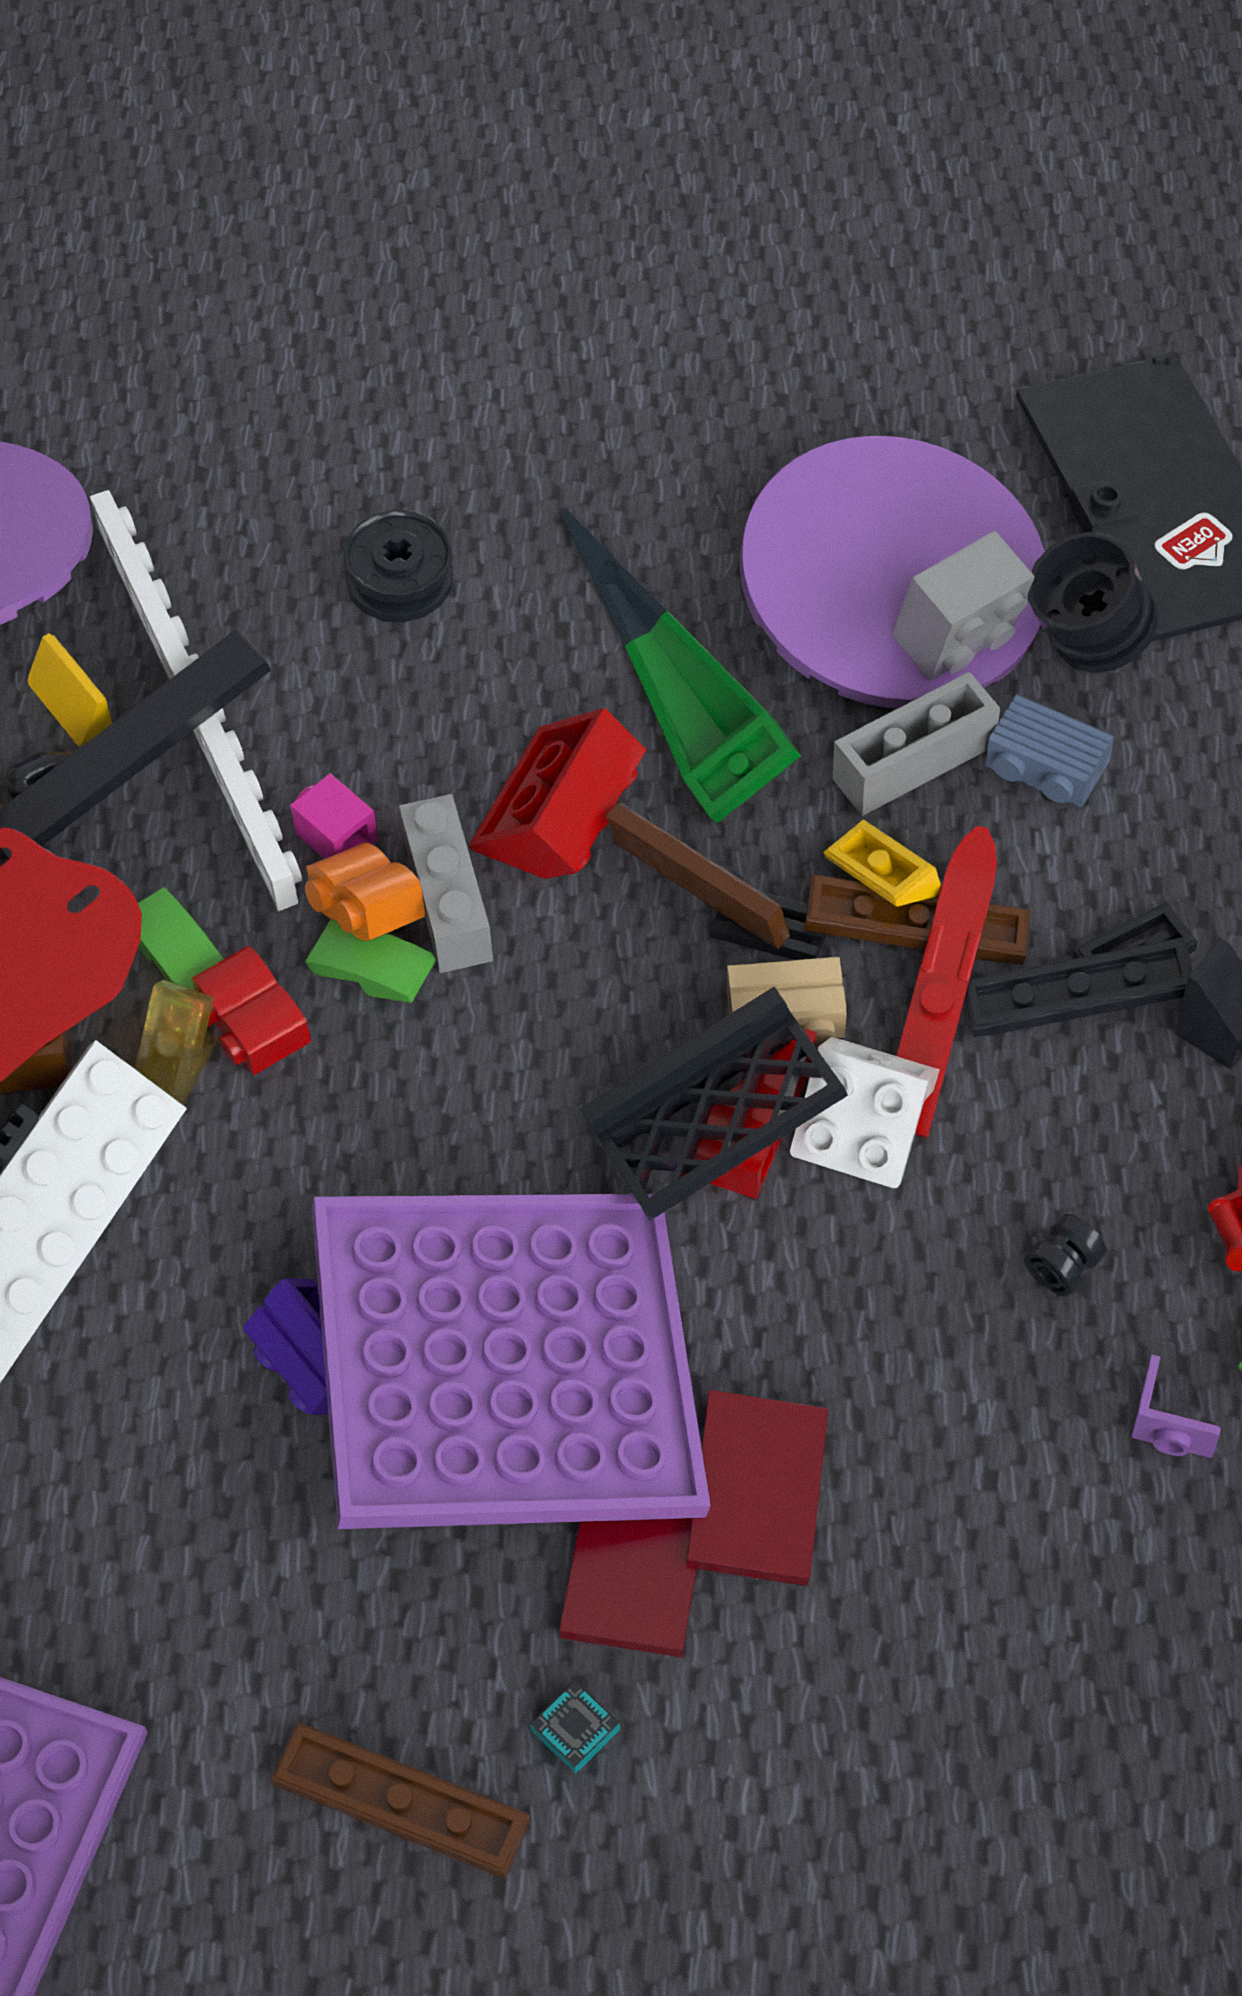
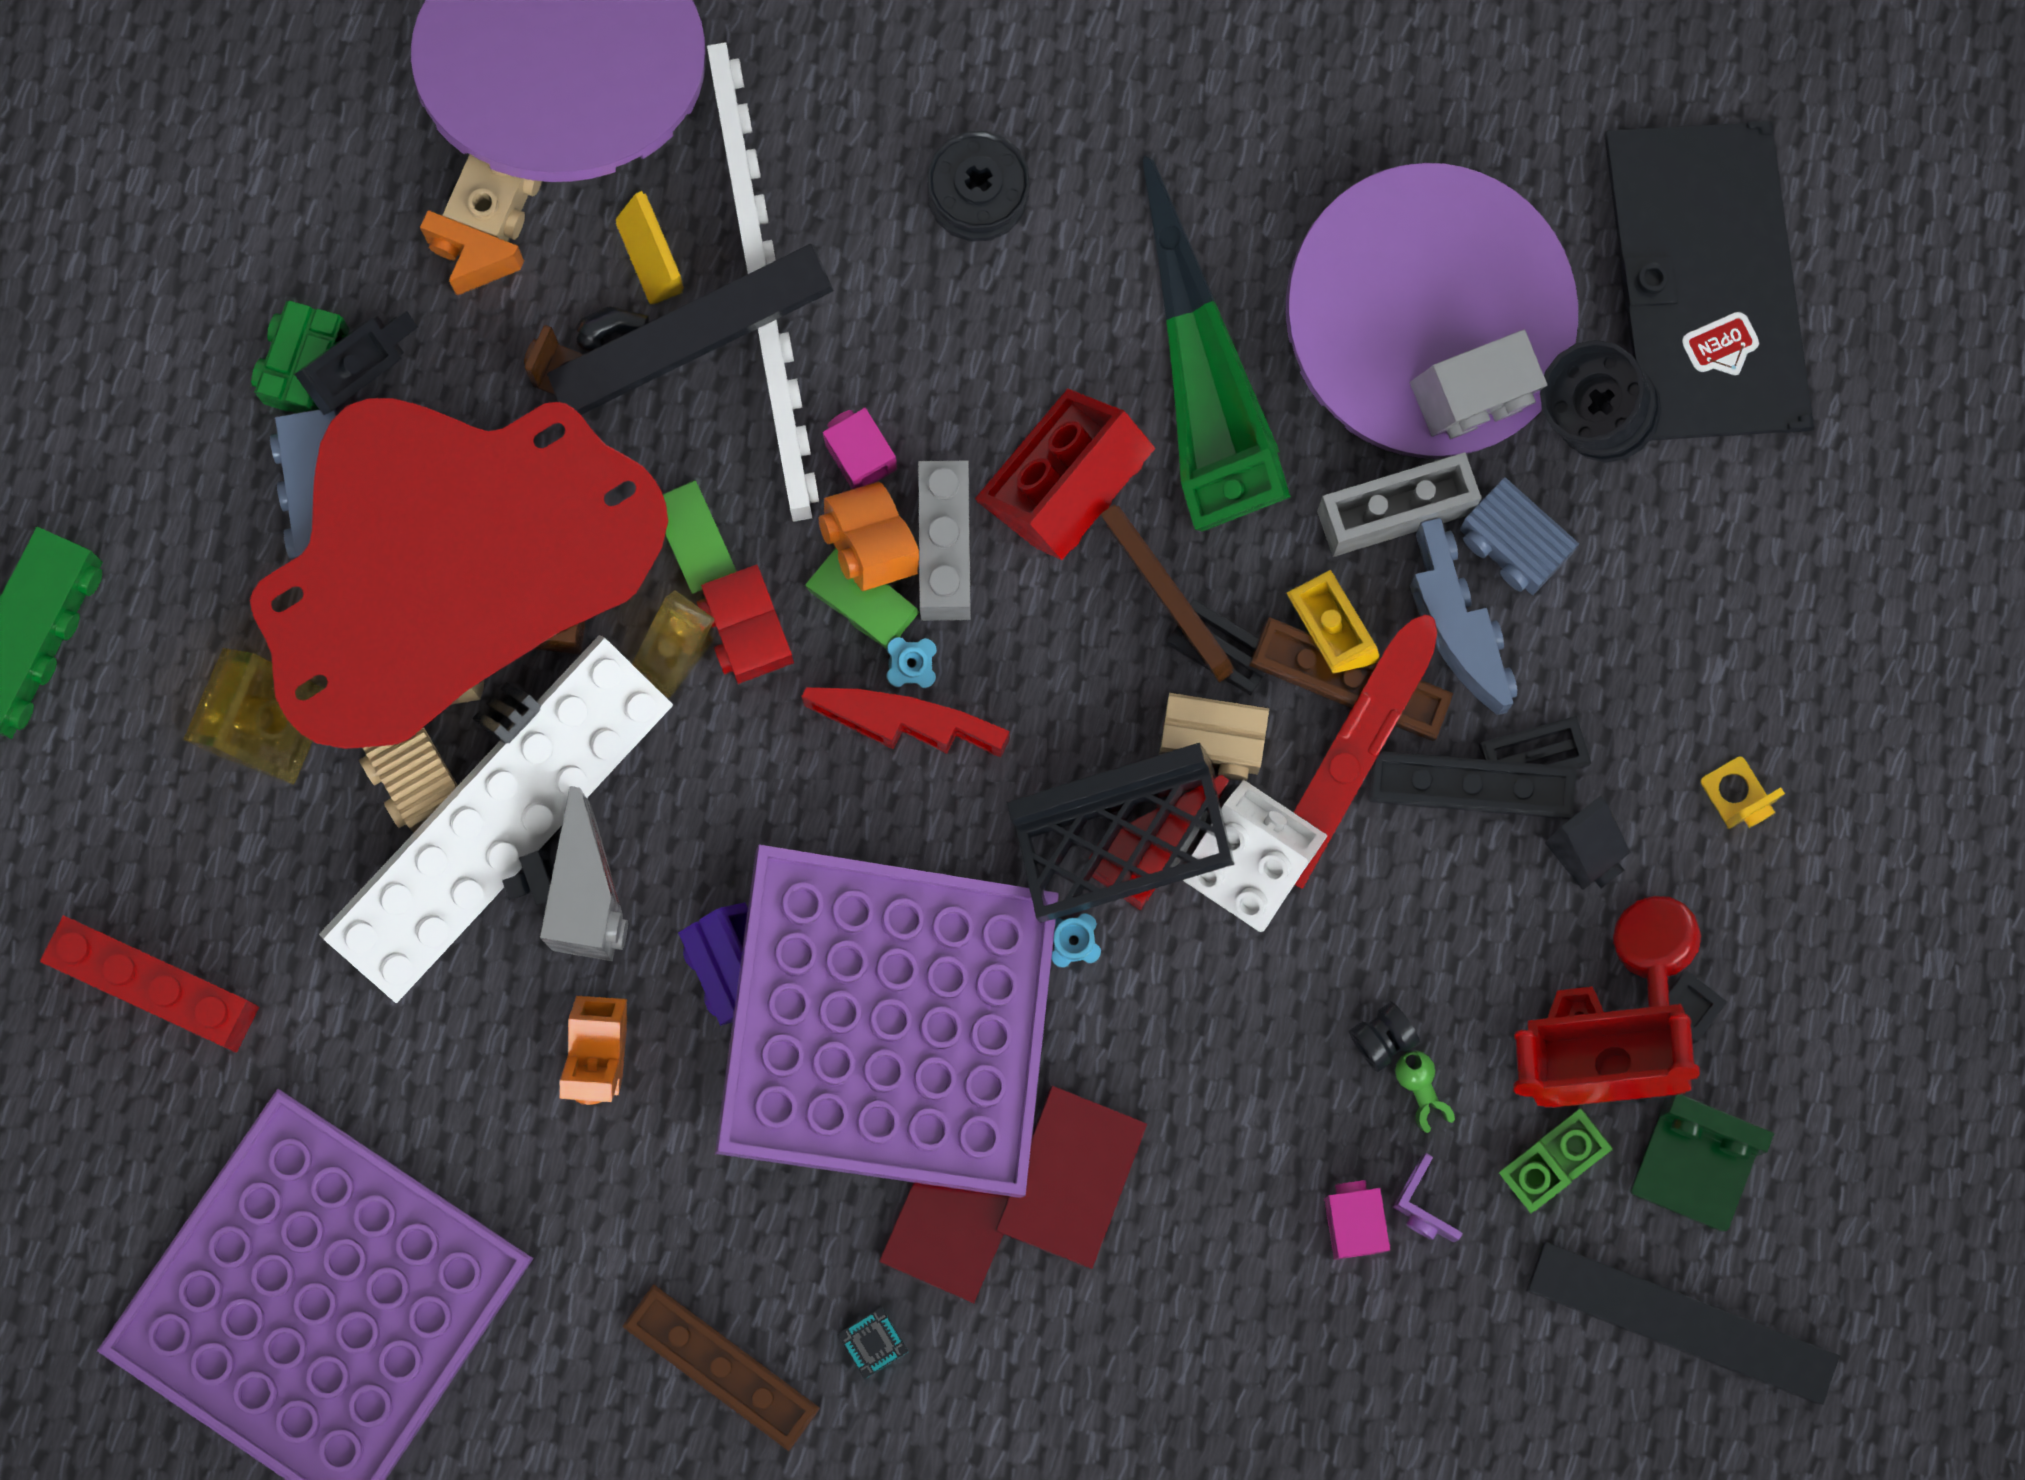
camera: 10 degrees right, 20 degrees up
(66, 1314) = (534, 880): none -> black tile
(125, 1320) = (582, 900): none -> light grey slope
(173, 1474) = (595, 1050): none -> orange brick
(425, 1062) = (888, 715): none -> red slope
(436, 1023) = (900, 672): none -> medium azure plate
(693, 1226) = (1085, 949): none -> medium azure plate
(1028, 851) = (1464, 638): none -> sand blue slope
(1097, 1453) = (1356, 1221): none -> dark pink brick
(1116, 1291) = (1419, 1080): none -> bright green arm

